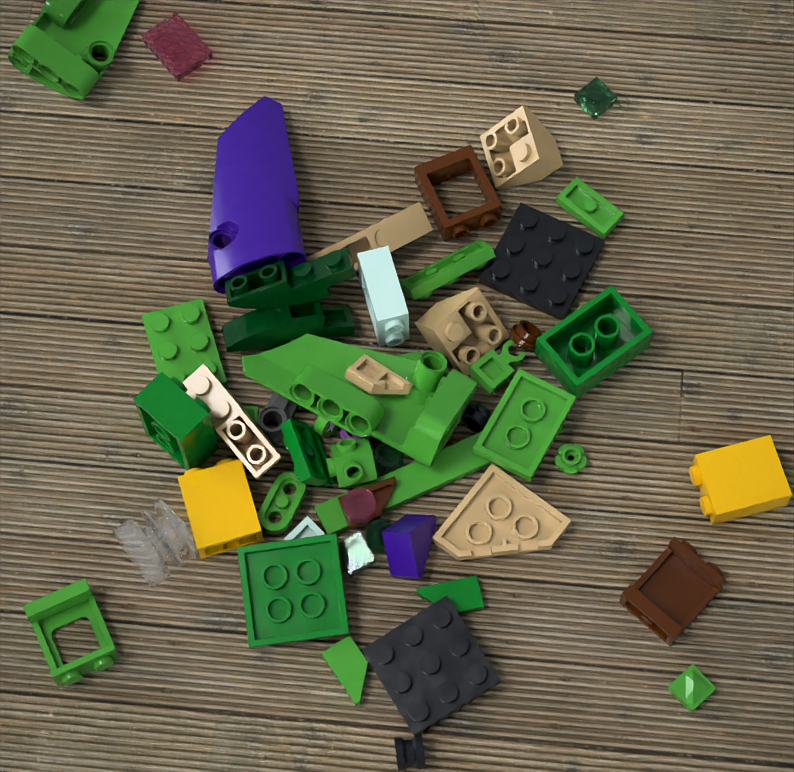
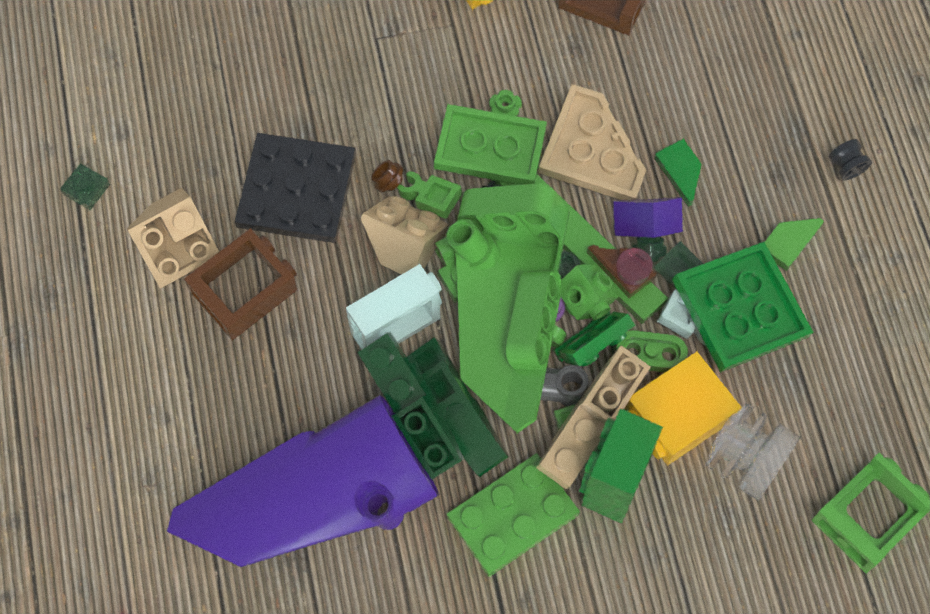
camera: 110 degrees left, 0 degrees up
(376, 378) = (491, 291): tan tile -> none
(392, 232) = (329, 343): tan slope -> none
(431, 666) = (759, 167): black plate -> none
(447, 270) = (332, 265): bright green plate -> none
(589, 208) = (223, 155): bright green plate -> none
(593, 342) = (381, 107): green brick -> none

